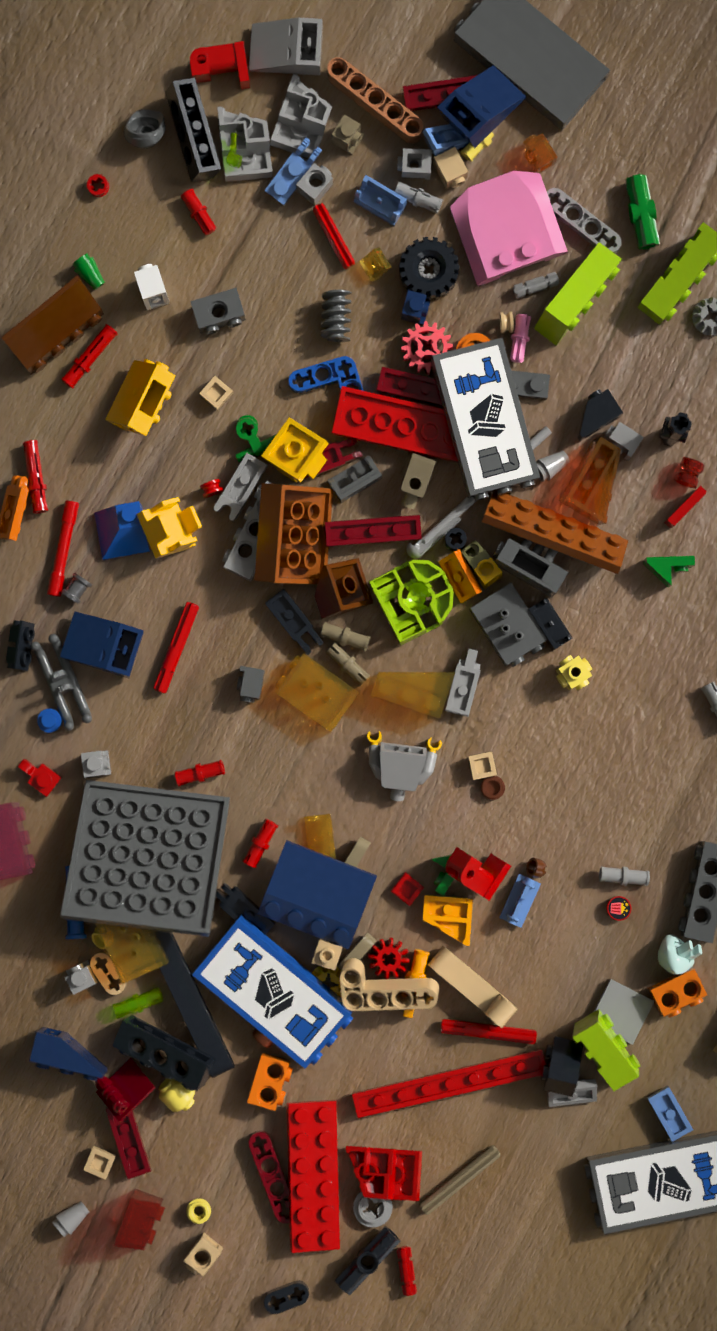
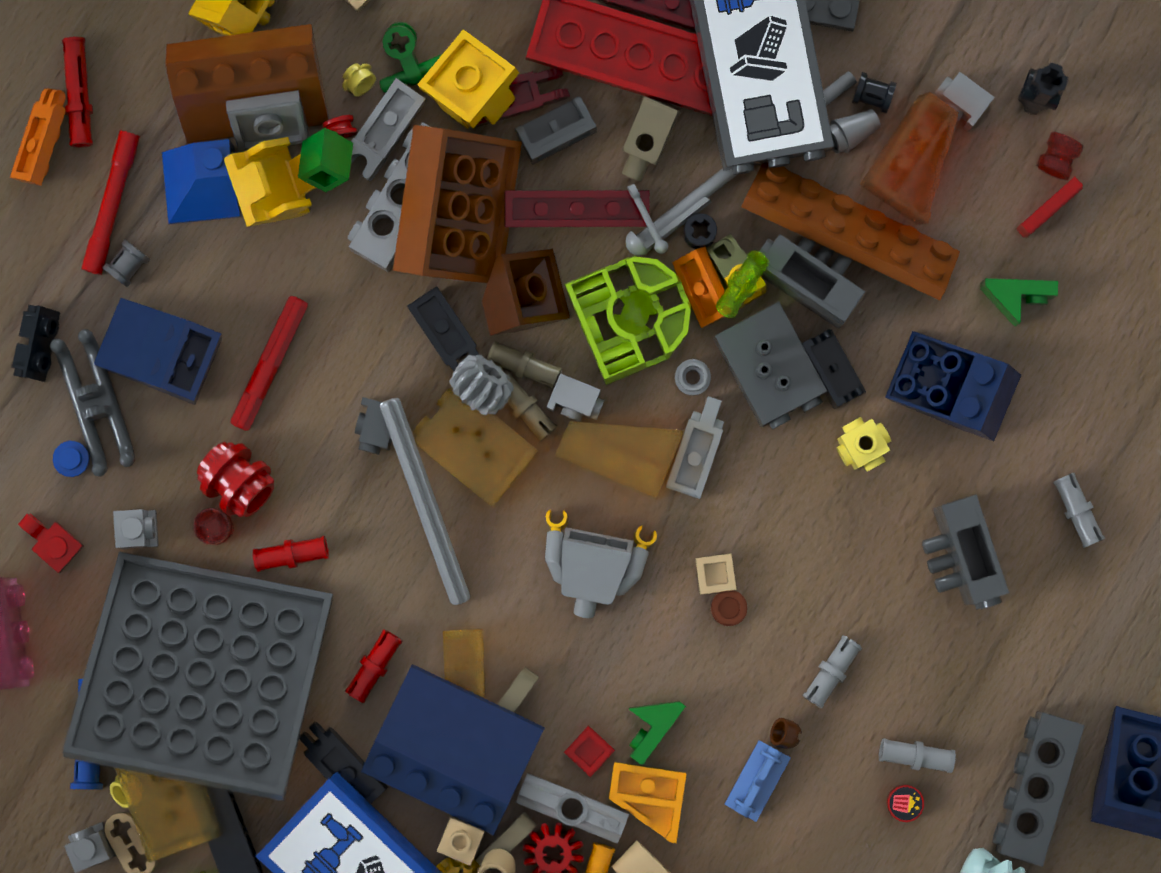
camera: 10 degrees right, 0 degrees up
(145, 756) = (206, 526): none -> clear red wheel
(148, 463) = (238, 67): none -> dark orange slope
(162, 728) = (229, 474): none -> red piece
(163, 486) = (267, 119): none -> light grey tile
(204, 510) = (325, 160): none -> green brick
(221, 454) = (358, 79): none -> light yellow plate
(286, 731) = (425, 501): none -> light grey axle
(318, 651) = (481, 384): none -> light grey gear
(381, 656) = (575, 399): none -> light grey brick
(414, 933) = (595, 817): none -> light grey piece
(430, 550) = (660, 246): none -> light grey hinge
(465, 636) = (697, 366): none -> light grey plate
(480, 879) = (698, 744): red piece -> none
(486, 573) = (742, 284): none -> clear neon green pin
(563, 439) = (874, 92): none -> black bush
(564, 824) = (832, 671): none -> light grey pin
(598, 413) = (929, 57): black slope -> none
(630, 629) = (954, 385): none -> dark blue slope
(648, 740) = (969, 554): none -> dark grey piece

